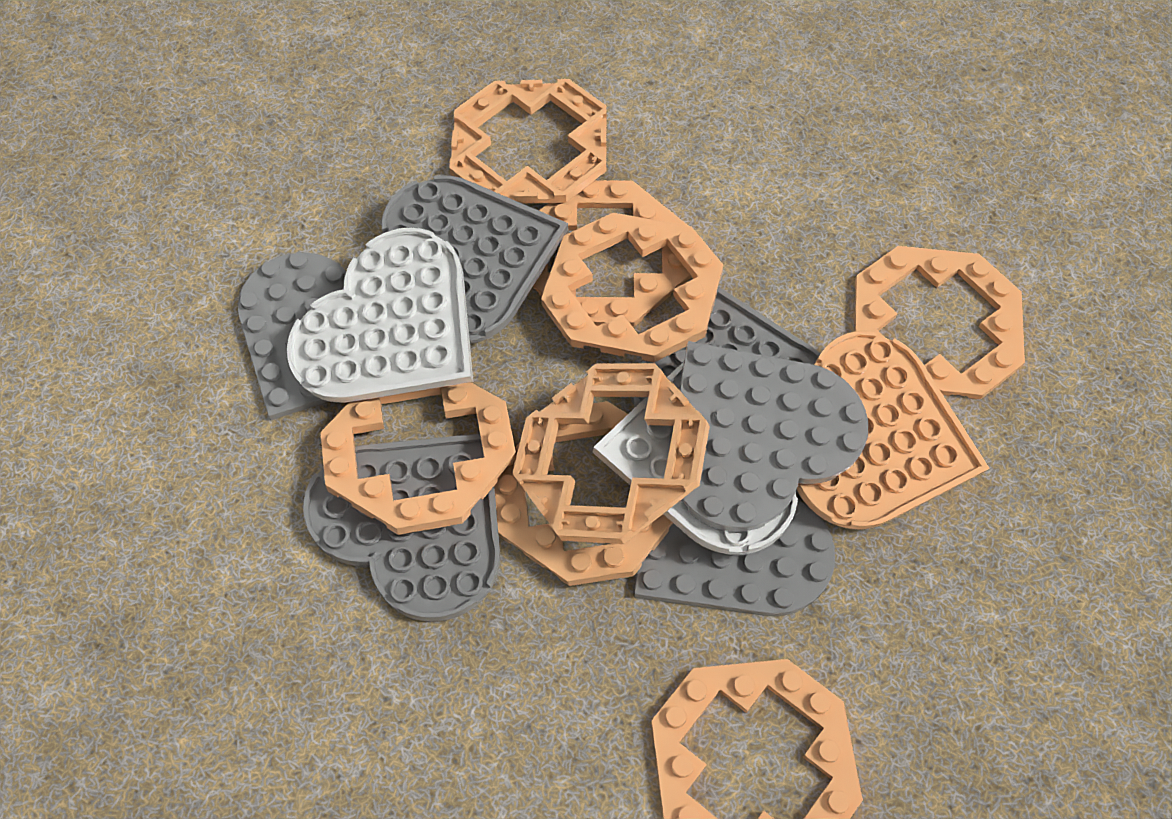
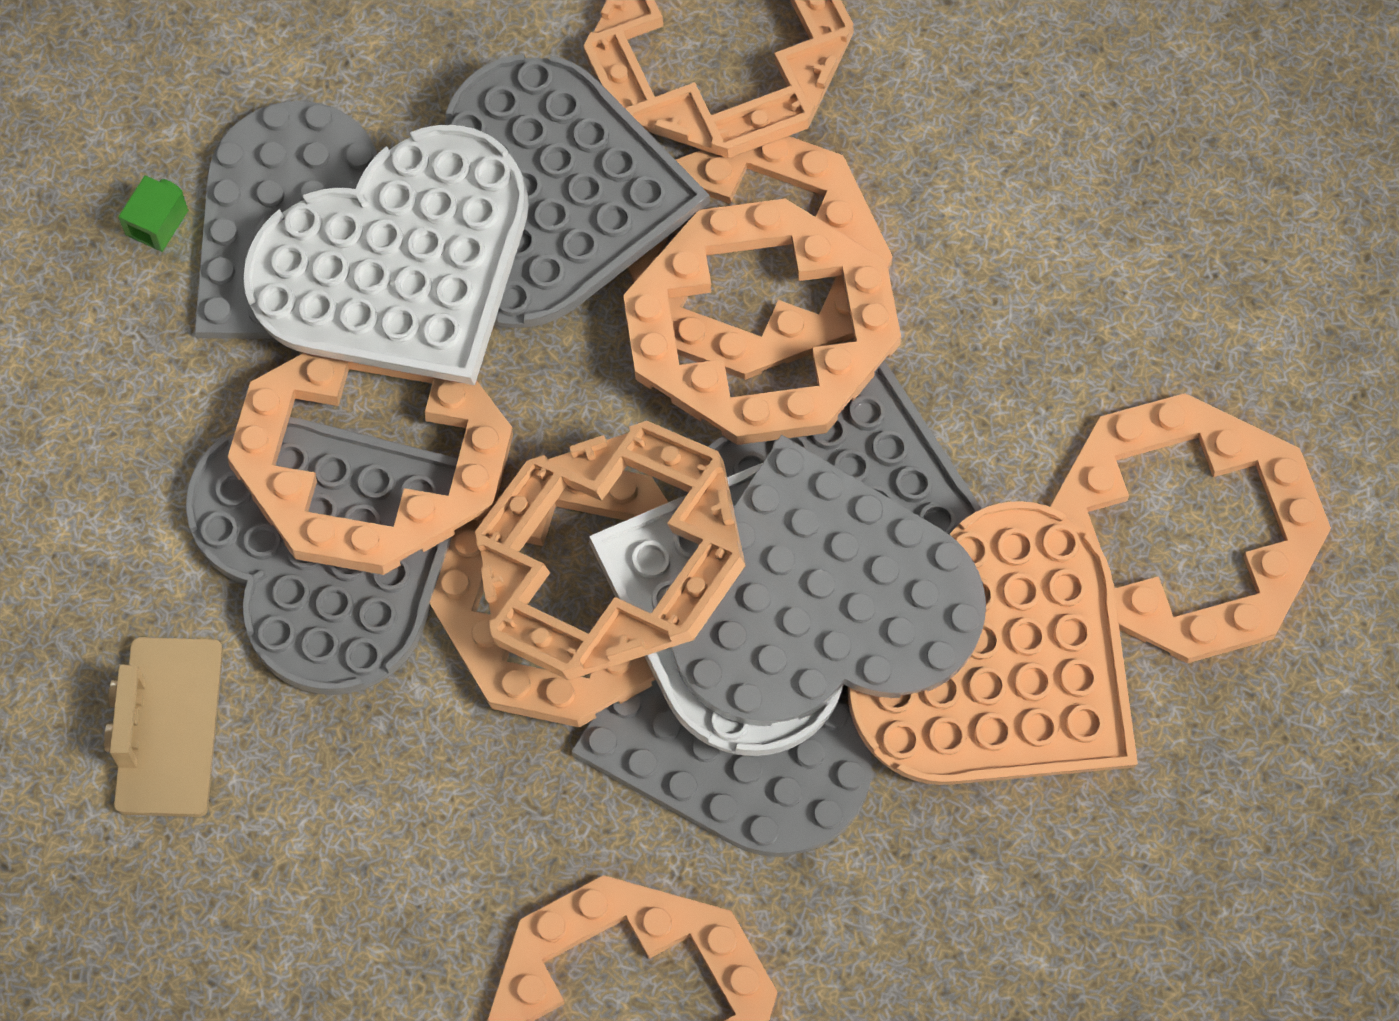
camera: 25 degrees right, 5 degrees up
(212, 351) = (154, 212): none -> bright green brick
(351, 682) = (165, 726): none -> tan bracket

